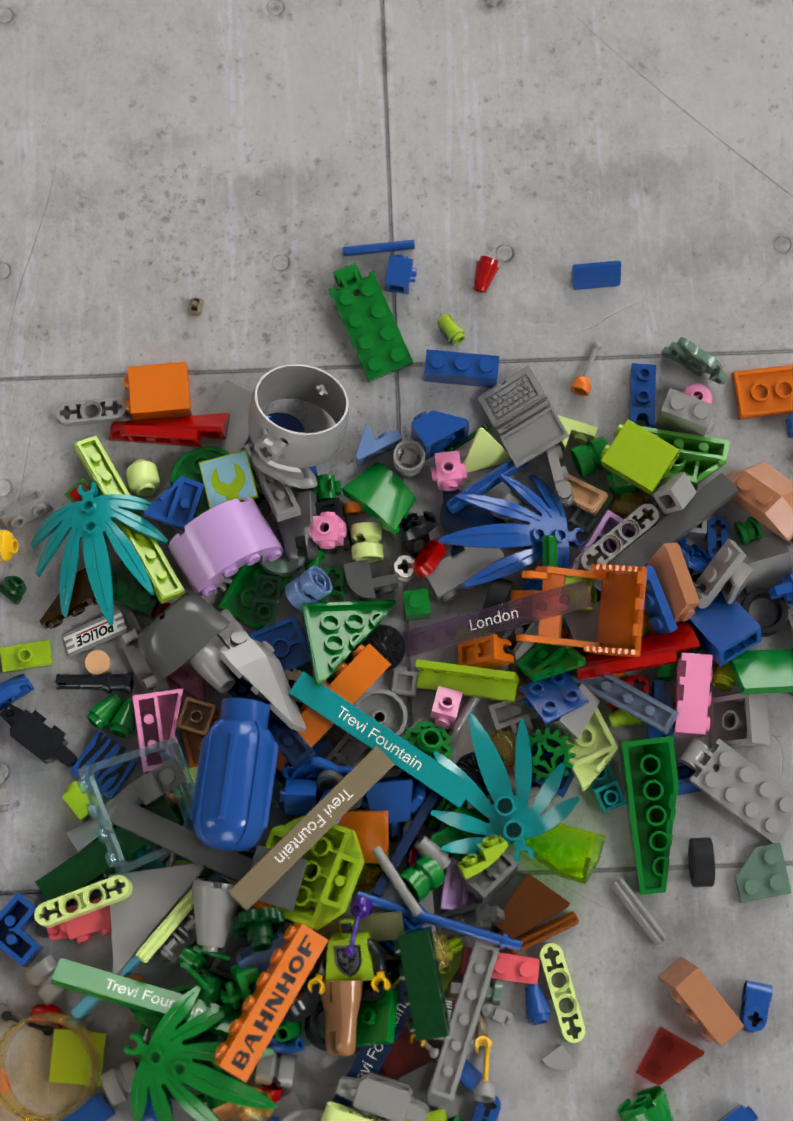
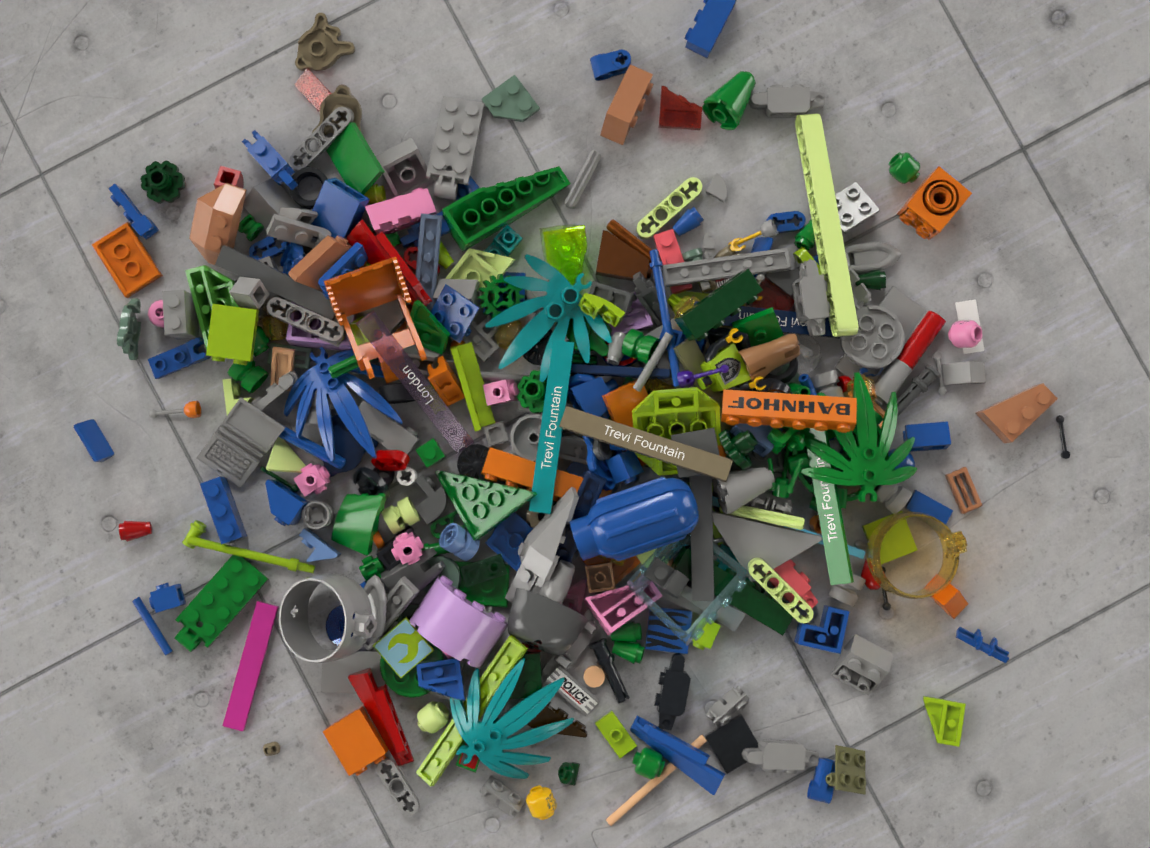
camera: 120 degrees left, 10 degrees up
(289, 324) = (250, 666): none -> dark pink tile
(371, 411) = (292, 563): none -> lime bar
(701, 862) = (525, 148): black tyre -> none

